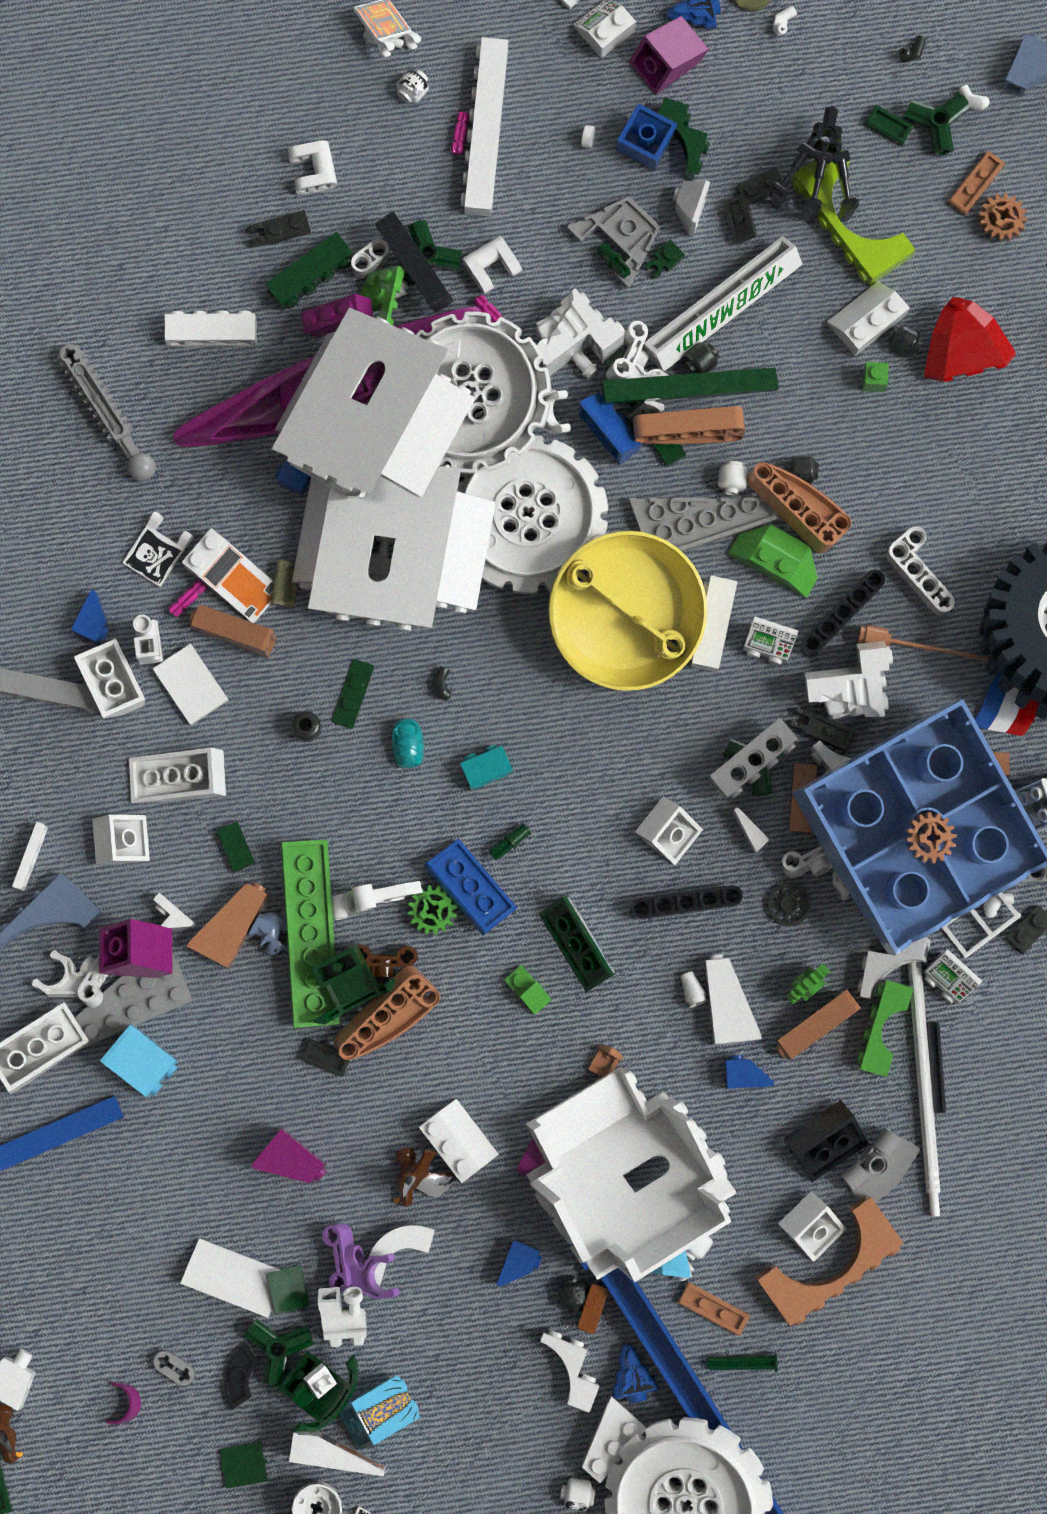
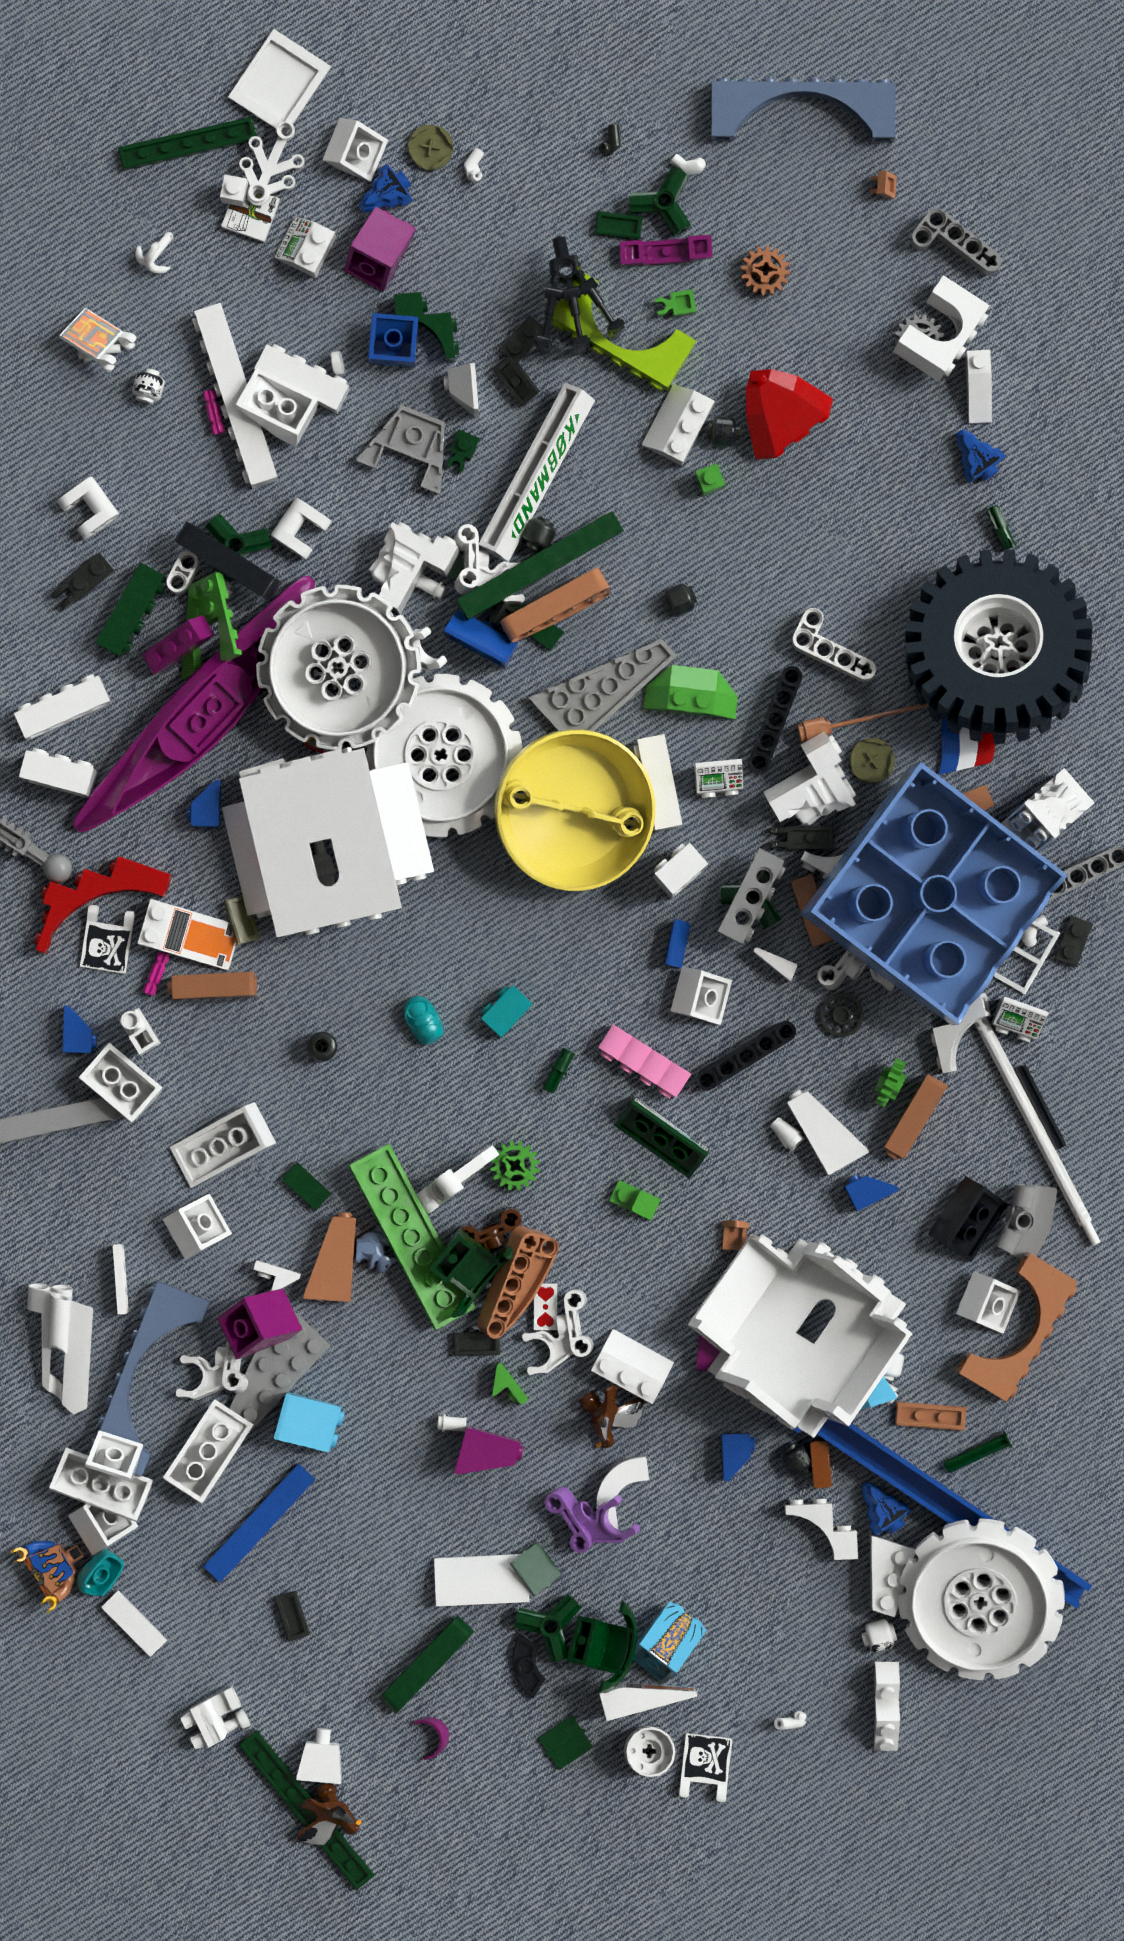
camera: 25 degrees left, 5 degrees up
(45, 1234) = (292, 1616): none -> pearl dark grey tile
(147, 1334) = (426, 1664): none -> dark green beam
(164, 495) = (125, 877): none -> red arch
(178, 1363) = (465, 1678): light grey beam -> none
(179, 382) = (58, 773): none -> white brick
(190, 684) = (196, 1053): white tile -> none
(270, 1120) = (451, 1423): none -> white pin
(319, 1381) = (602, 1637): white tile -> none
(336, 1101) = (504, 1379): none -> bright green slope
(340, 1323) = (598, 1577): white hips -> none
(353, 693) = (351, 995): dark green piece -> none
(396, 434) = (295, 737): white panel -> none
(403, 1052) = (545, 1307): none -> white tile
(414, 1085) = (569, 1334): none -> white piece
(439, 686) = (427, 952): pearl dark grey arm -> none
(470, 887) = (540, 1128): blue tile -> none
(482, 302) = (320, 575): dark pink axle -> none
(519, 149) = (277, 406): none -> white slope
(550, 136) = (313, 380): none -> white brick
(591, 867) = (643, 1060): none -> bright pink brick
(614, 260) = (415, 474): dark green axle -> none
(667, 774) = (677, 943): none -> blue slope
(699, 707) = (680, 870): none -> white brick
(732, 477) = (617, 635): white head -> none
(808, 503) = (699, 630): nougat beam -> none
(892, 999) = (974, 1062): bright green arch -> none
(914, 687) = (871, 760): none -> olive tile
(915, 213) = (681, 303): none -> bright green plate
(920, 164) = (666, 251): none -> magenta slope
(930, 828) = (940, 897): nougat gear -> none
(976, 183) = (726, 246): nougat tile -> none

